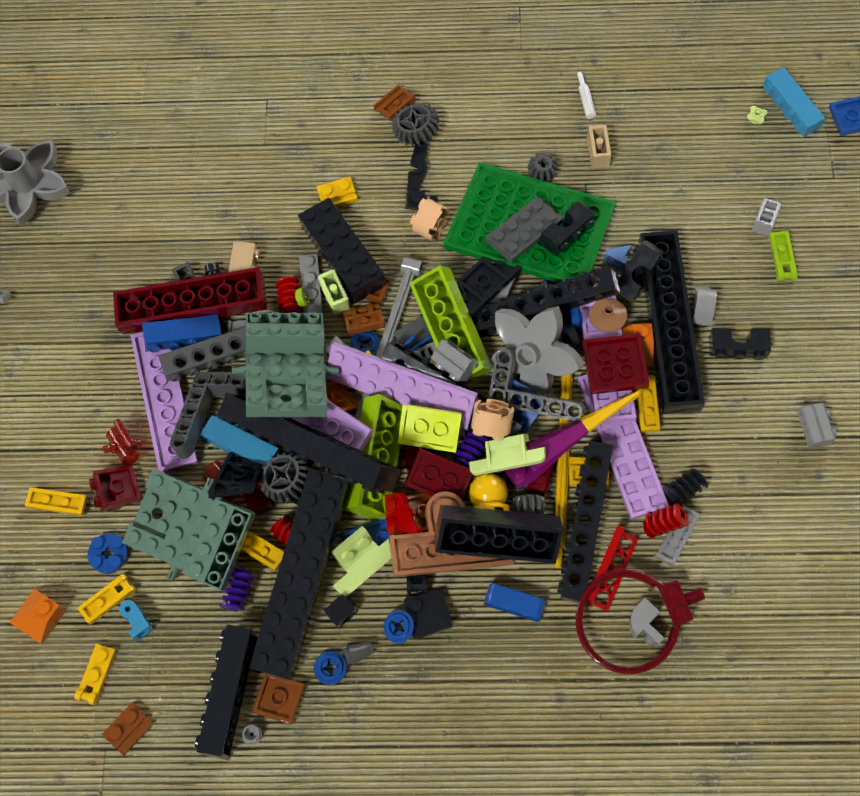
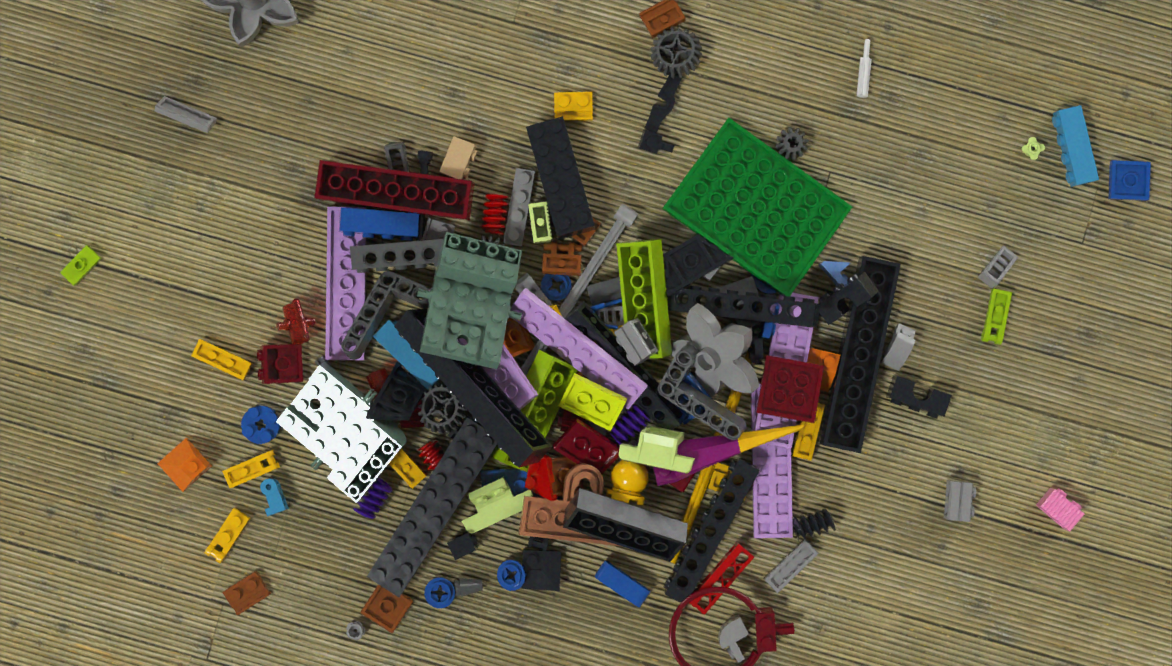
camera: 10 degrees right, 20 degrees up
(226, 693) = (341, 593): black brick -> none
(302, 297) = (507, 220): lime tile -> none
(429, 219) = (658, 172): light nougat brick -> none
(492, 419) = (653, 415): light nougat brick -> none
(522, 229) = (749, 215): dark grey plate -> none
(529, 504) = (662, 500): dark grey gear -> none
(557, 238) = (806, 220): black arch -> none
(599, 146) = (856, 138): tan brick -> none
(608, 321) = (799, 341): medium nougat dish -> none
(665, 520) = (783, 553): red piece -> none

